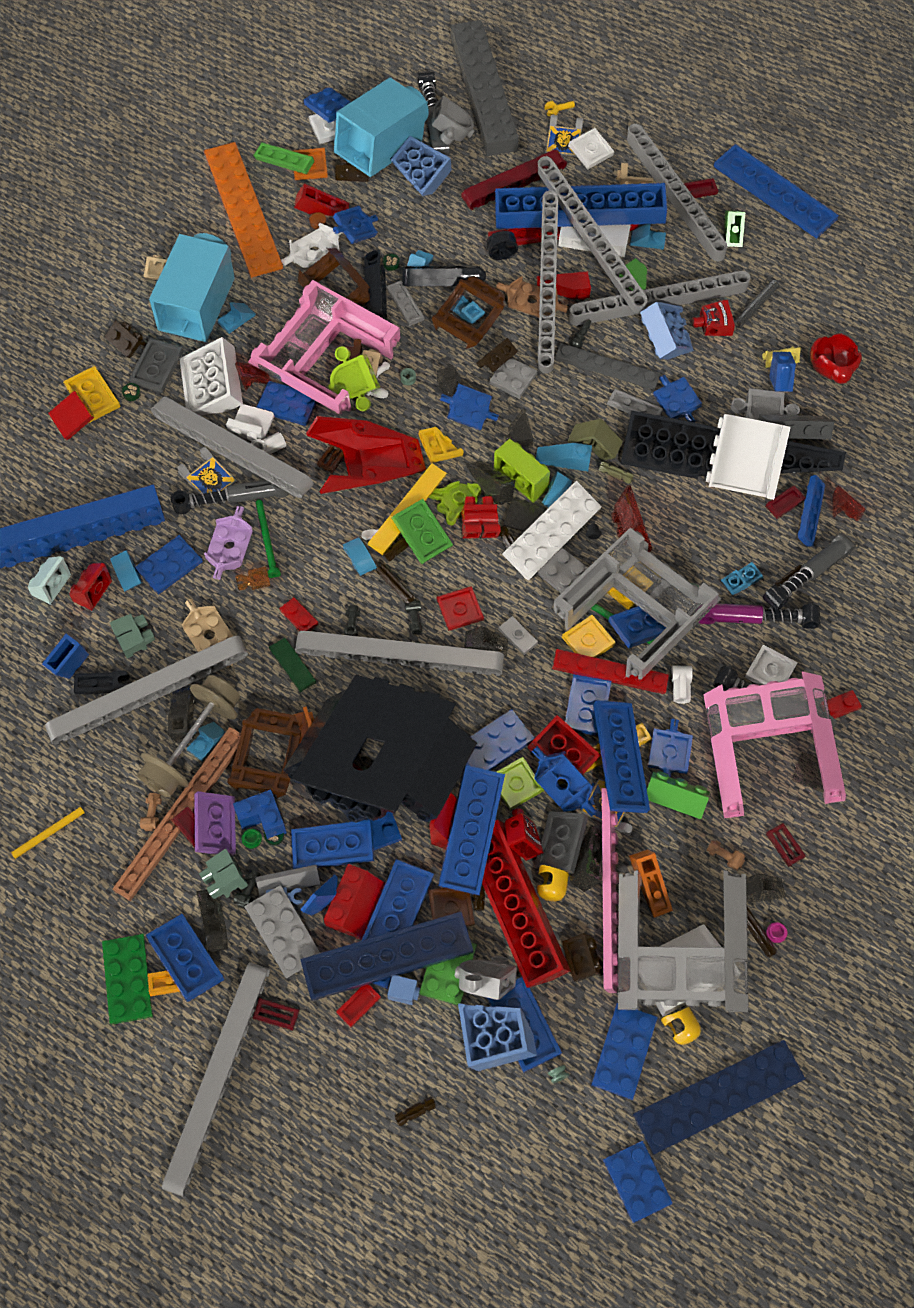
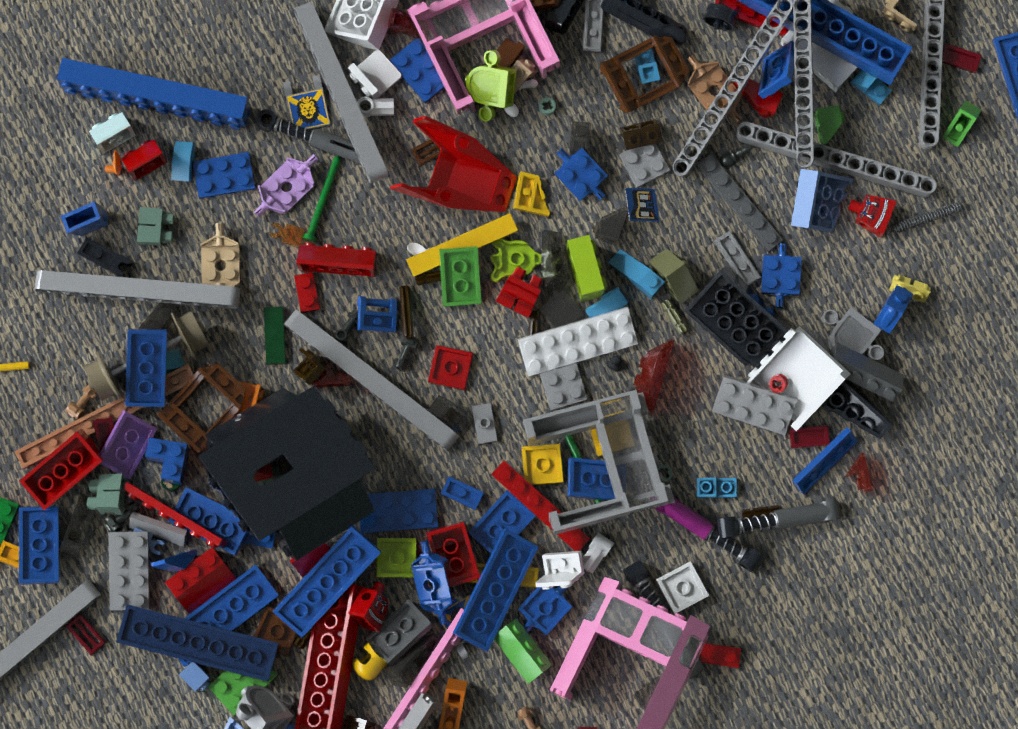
camera: 30 degrees right, 15 degrees up
(68, 603) = (117, 165): none -> orange bar
(167, 875) = (62, 469): none -> red slope
(194, 744) = (146, 367): none -> blue plate
(251, 838) = (150, 473): green plate -> none
(305, 856) = (167, 512): none -> red plate
(310, 575) = (336, 260): none -> red slope
(341, 667) = (310, 368): none -> dark brown bracket
(358, 1005) = (154, 666): red tile -> none
(359, 556) = (392, 265): dark azure slope -> none
(369, 670) = (327, 380): none -> clear red slope
(373, 603) = (377, 320): none -> blue plate
(533, 404) = (642, 204): none -> sticker
(537, 699) = (462, 493): none -> blue plate
(573, 254) = (777, 70): none -> blue plate
(663, 708) = (561, 569): none -> white bracket
(726, 499) = (754, 405): none -> light grey plate
(733, 465) = (779, 377): none -> red bush
(835, 357) = (953, 310): red piece -> none

